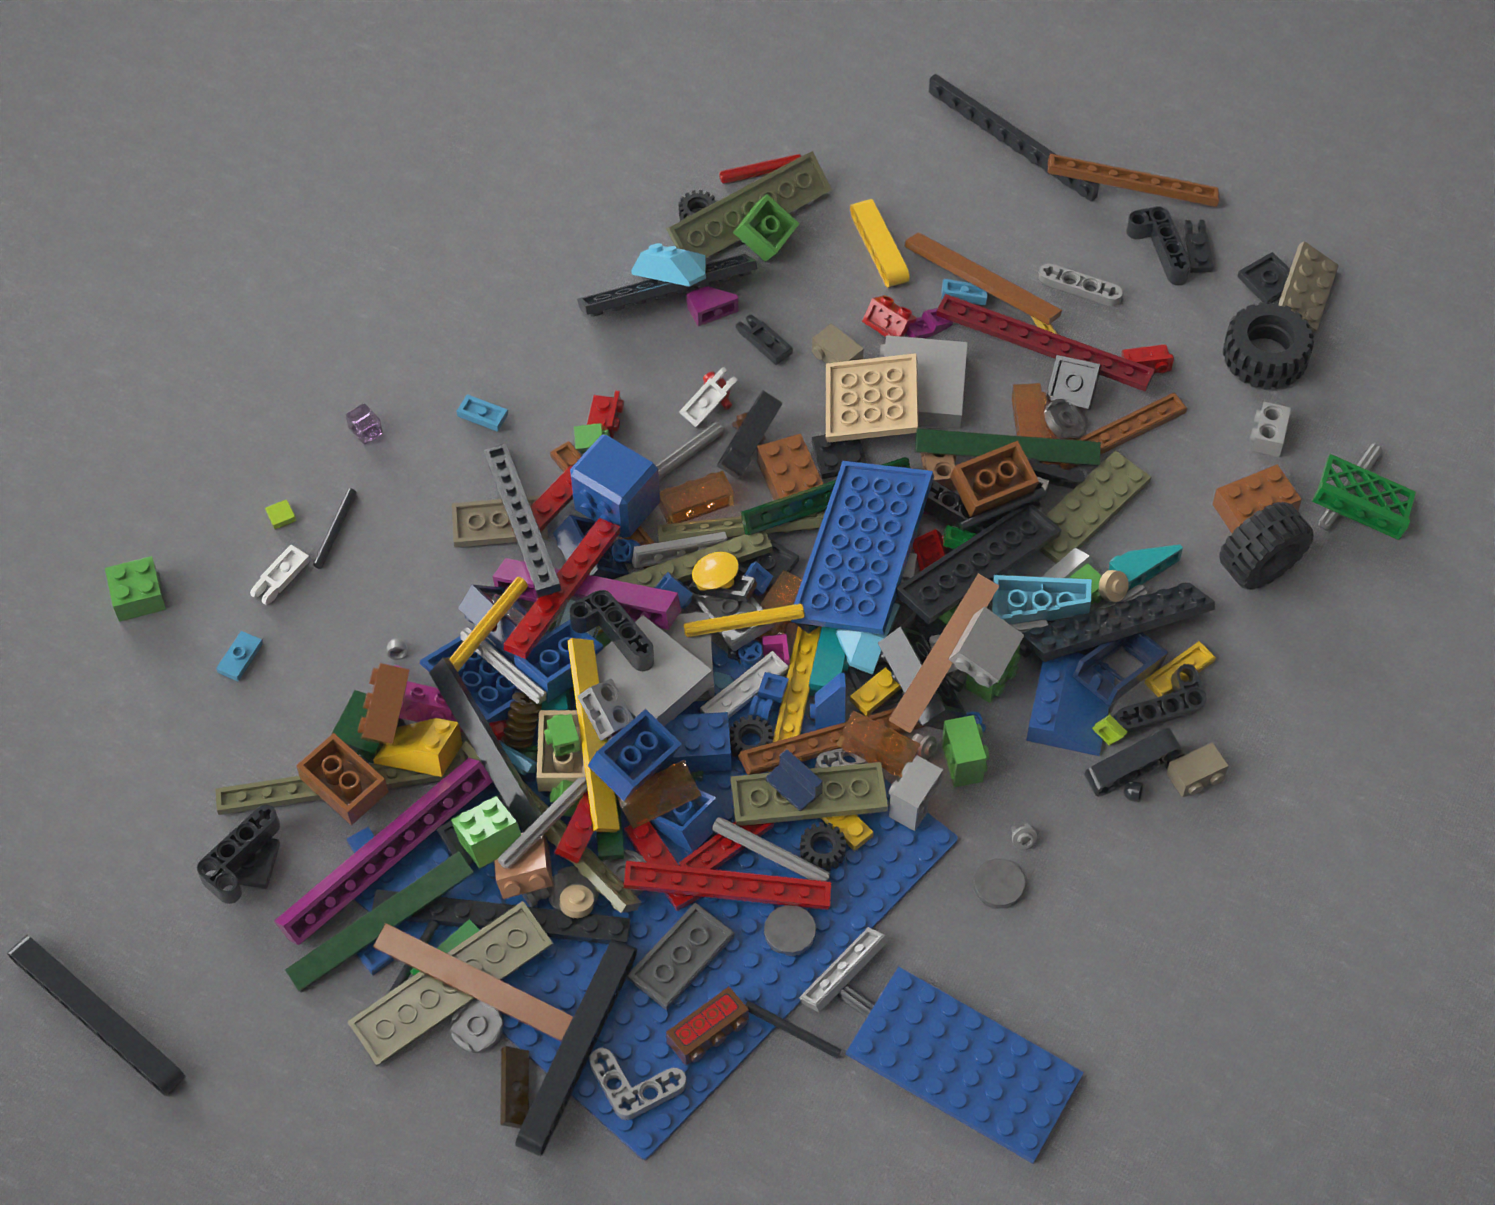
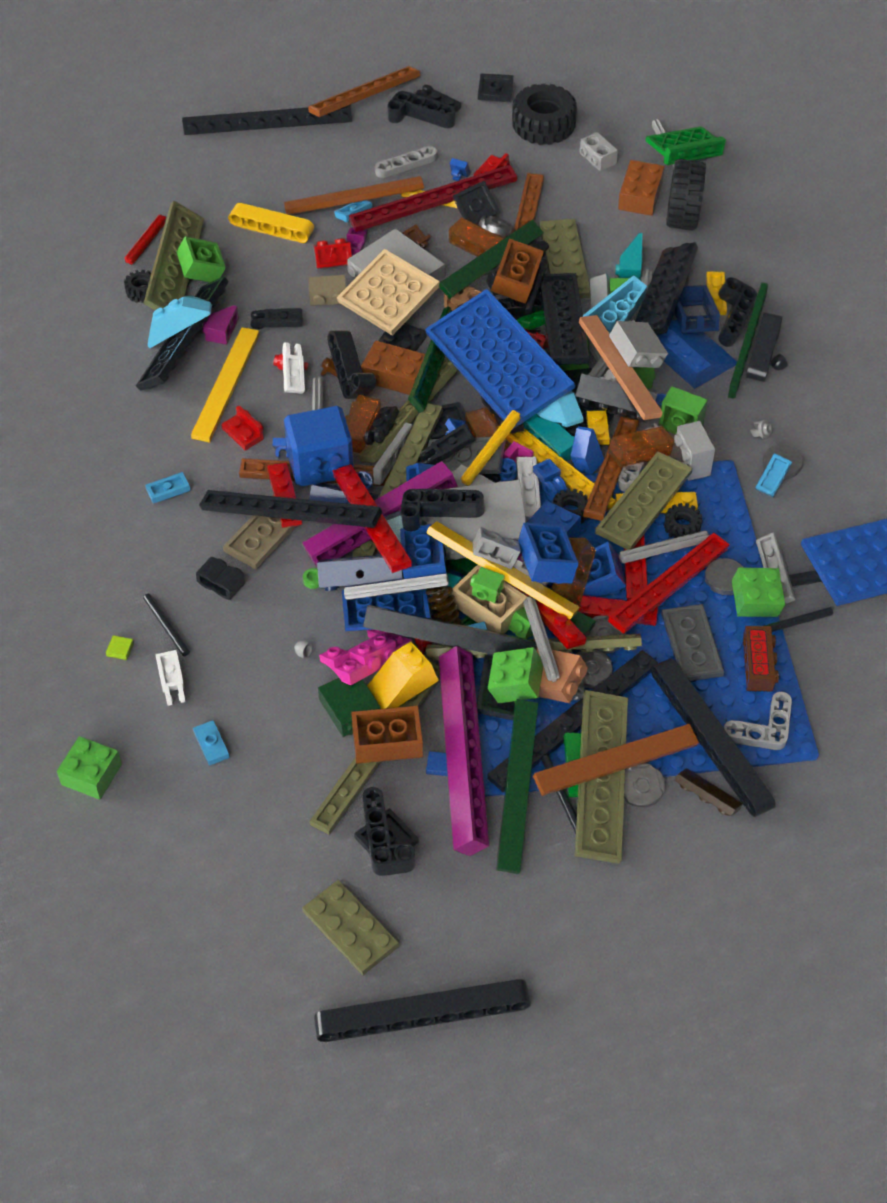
camera: 50 degrees left, 5 degrees down
(138, 900) = (350, 927): none -> olive plate
(364, 423) = (103, 554): clear purple brick -> none
(374, 959) = (535, 812): blue tile -> none
(383, 704) = (364, 665): dark orange brick -> none
(416, 528) = (220, 578): none -> black brick
(488, 622) = (359, 567): yellow axle -> none
(576, 901) = (606, 666): tan wheel -> none
(587, 434) = (257, 443): bright green brick -> none
(646, 362) = (225, 385): none -> yellow tile
(706, 516) = (381, 425): none -> black hinge
(715, 571) = (435, 440): yellow dish -> none
(785, 970) = (758, 592): none -> bright green brick
(795, 781) = (633, 496): dark blue panel -> none
(965, 886) = (773, 475): none -> dark azure plate
(980, 368) = (417, 236): none -> reddish brown bracket
(1109, 730) = (730, 344): lime tile -> none
(1112, 334) = (459, 169): none -> blue tile
(1113, 585) = (638, 273): tan wheel -> none
(1179, 726) = (748, 339): none -> dark green tile
(1197, 770) = (793, 326): dark tan brick -> none
(1309, 284) = (516, 70): dark tan plate -> none

